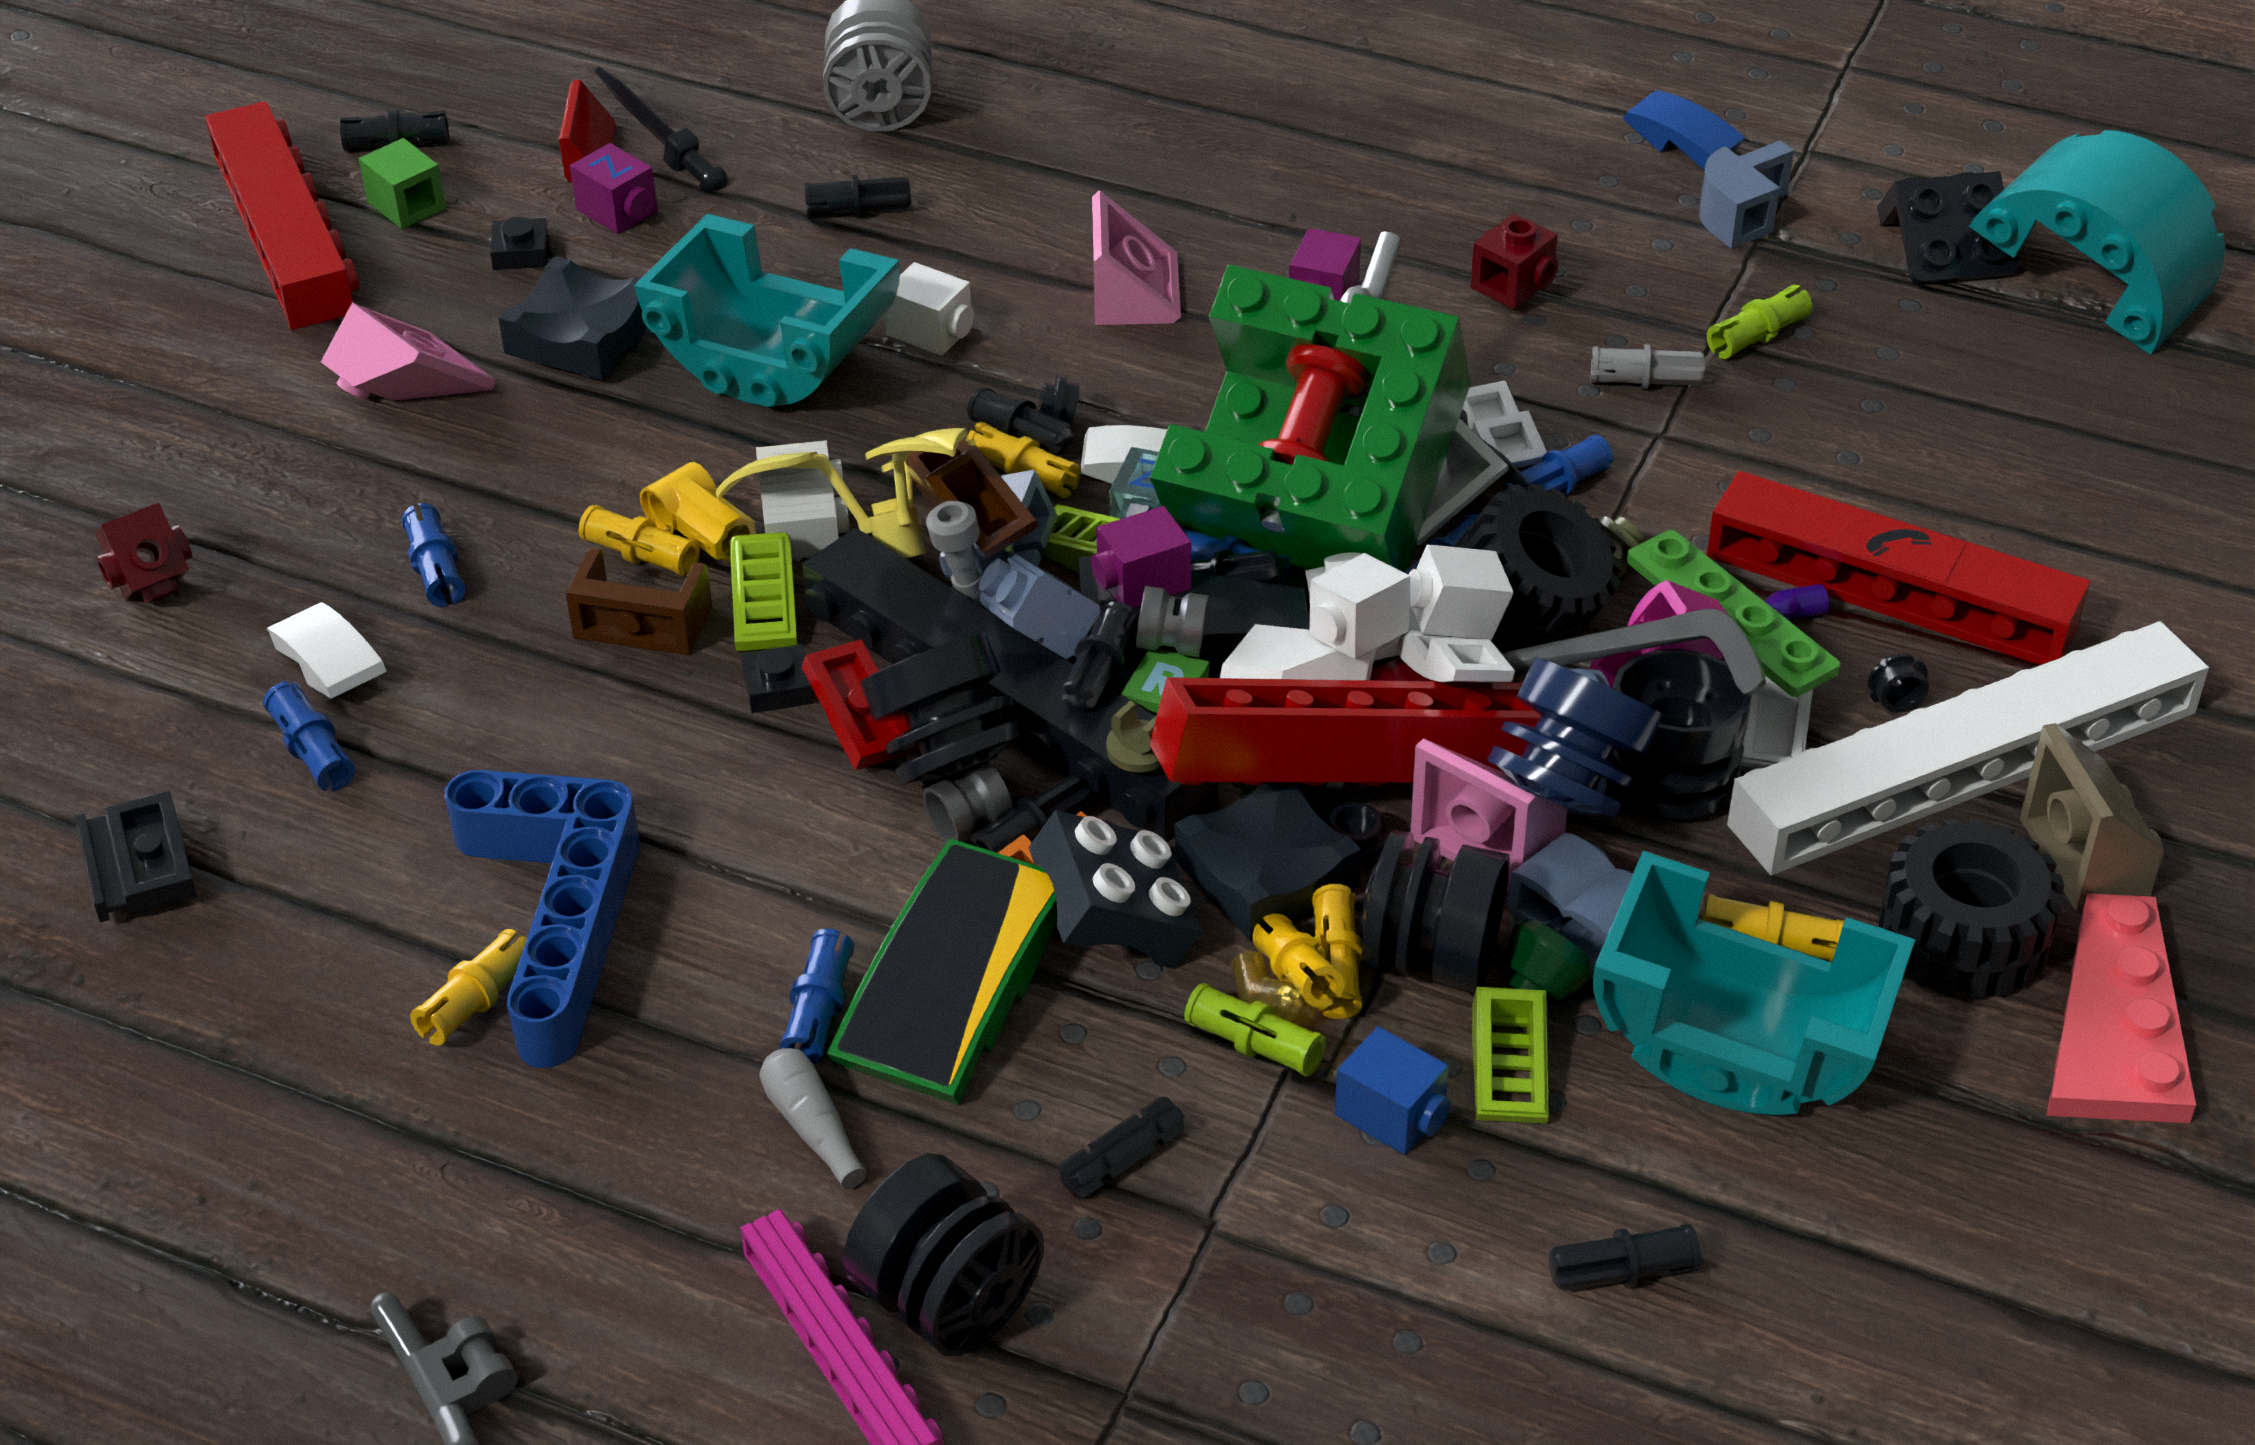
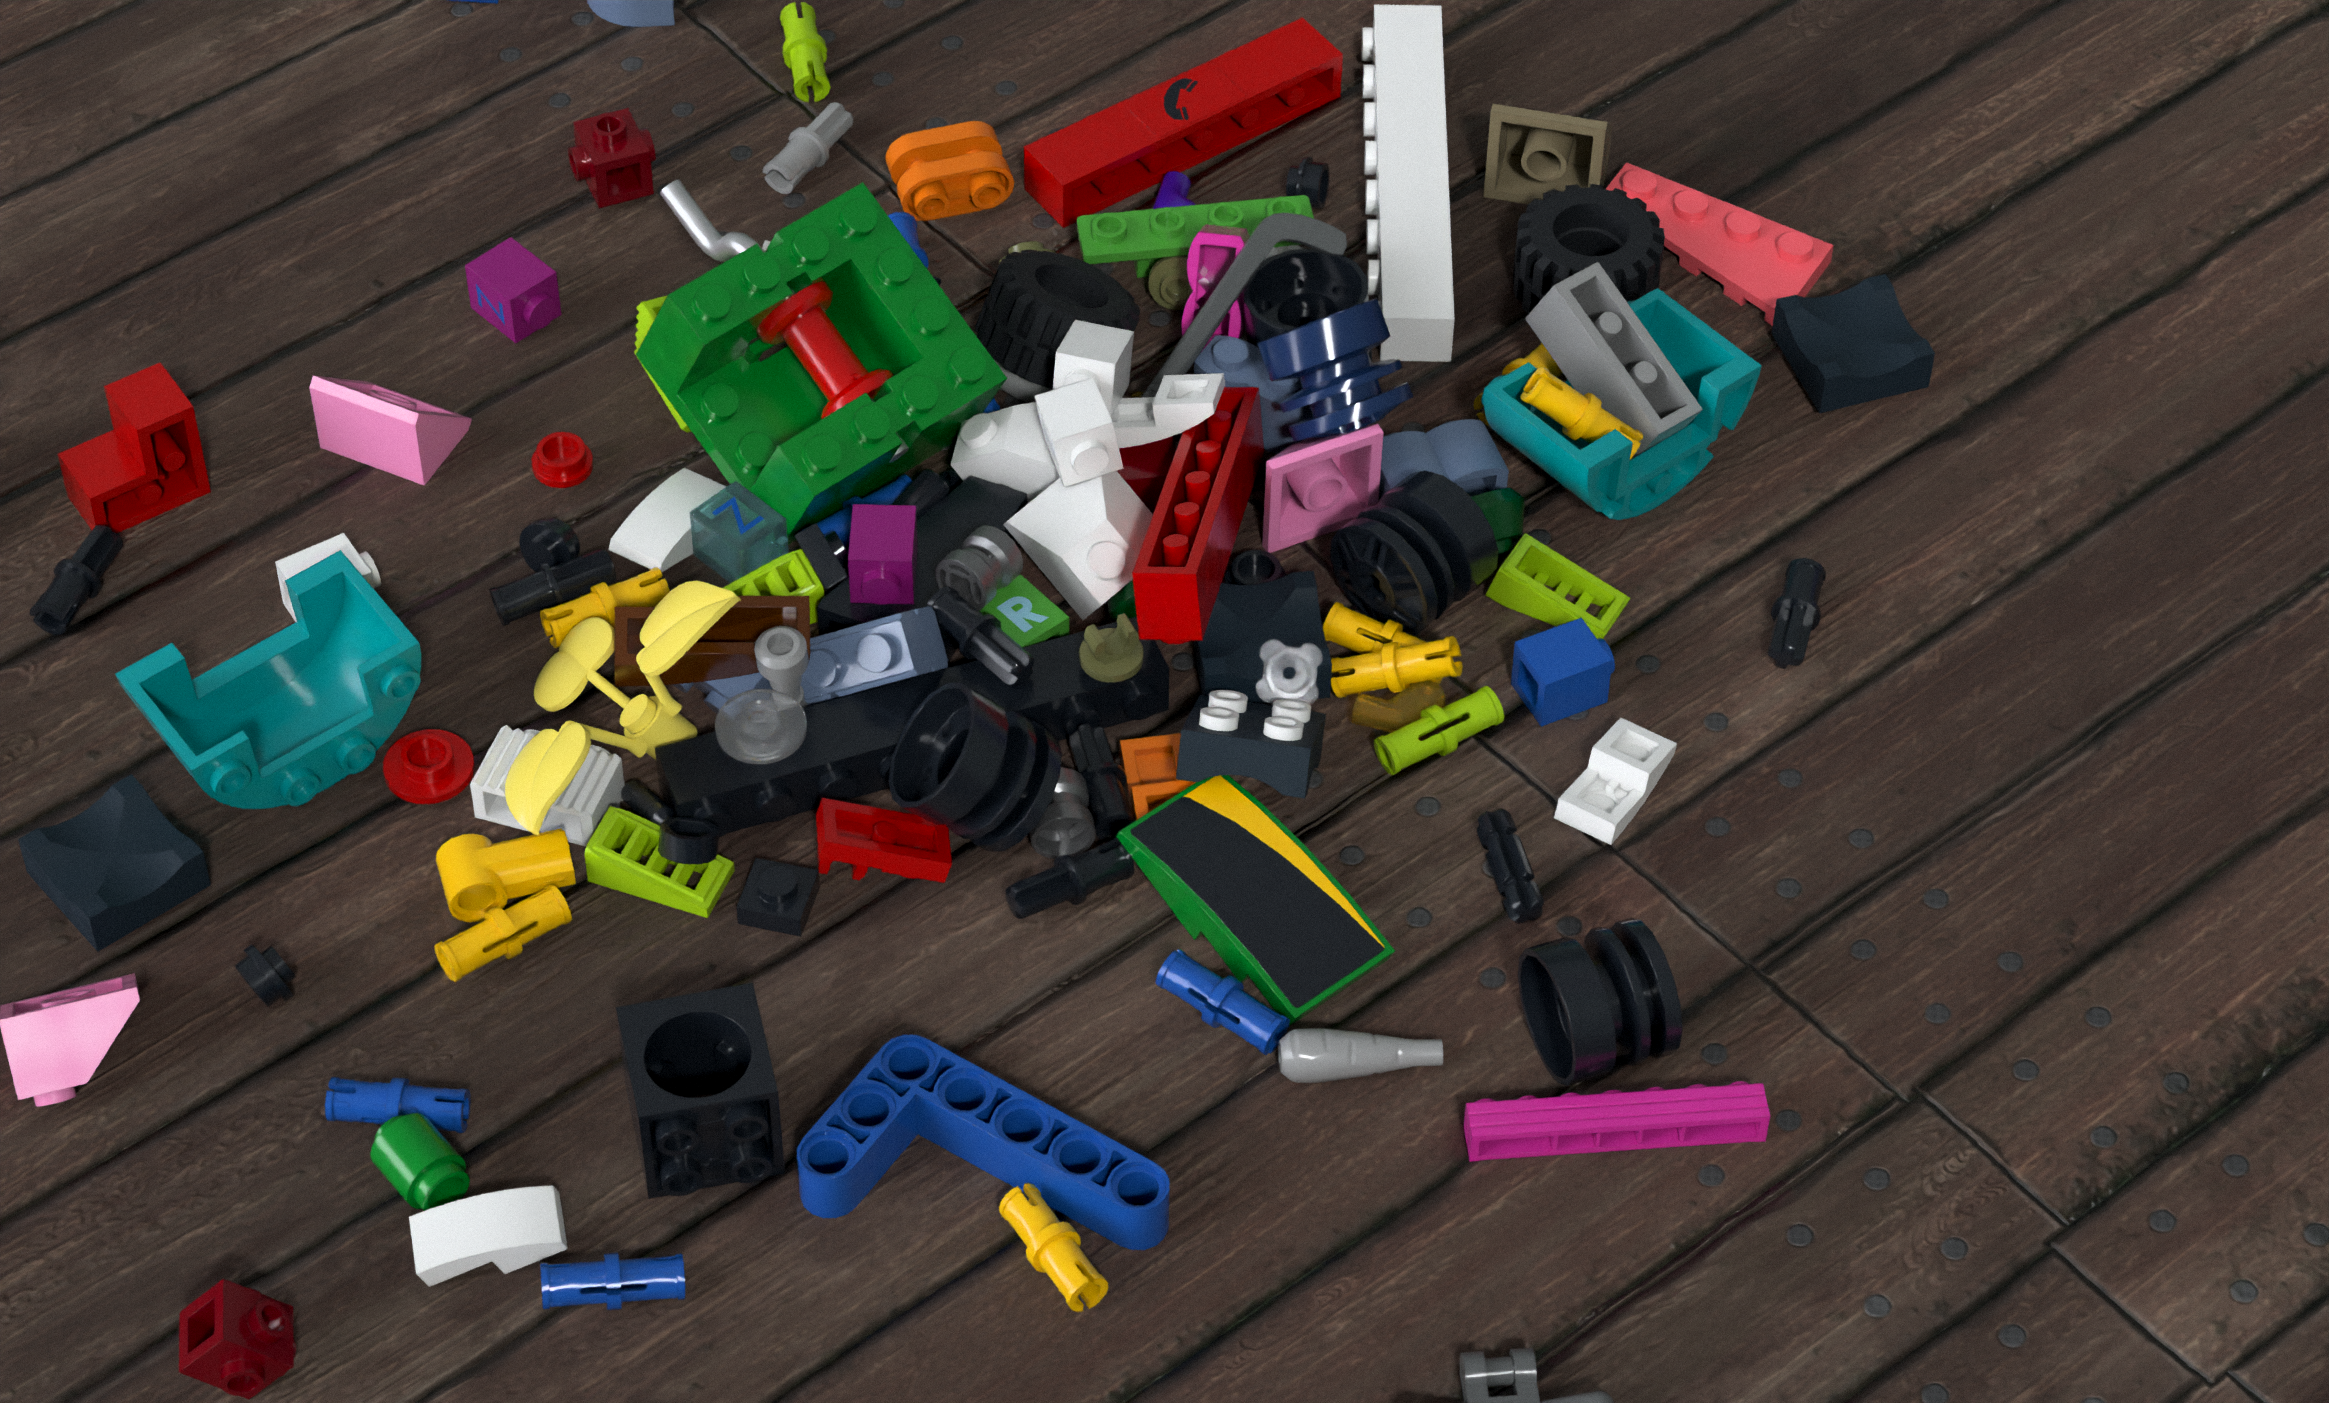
camera: 65 degrees left, 5 degrees up
(371, 583) = (419, 1162): none -> green brick
(500, 688) = (691, 1049): none -> black brick
(517, 435) = (266, 974): none -> black plate
(637, 614) = (614, 963): reddish brown panel -> none
(779, 577) = (680, 838): none -> black piece
(787, 426) = (428, 766): none -> red piece
(896, 840) = (1071, 879): none -> black axle
(903, 567) = (761, 726): none -> clear piece
(982, 162) = (145, 462): none -> red brick
(1165, 374) = (562, 460): none -> red plate
(1196, 866) = (1276, 659): none -> clear plate
(1304, 1195) = (1617, 781): none -> white slope
(1686, 948) = (1577, 413): none -> yellow pin
(1688, 451) = (949, 170): none -> orange brick
(1788, 944) = (1612, 355): none -> light grey brick
(2050, 1167) = (1852, 345): none -> black brick

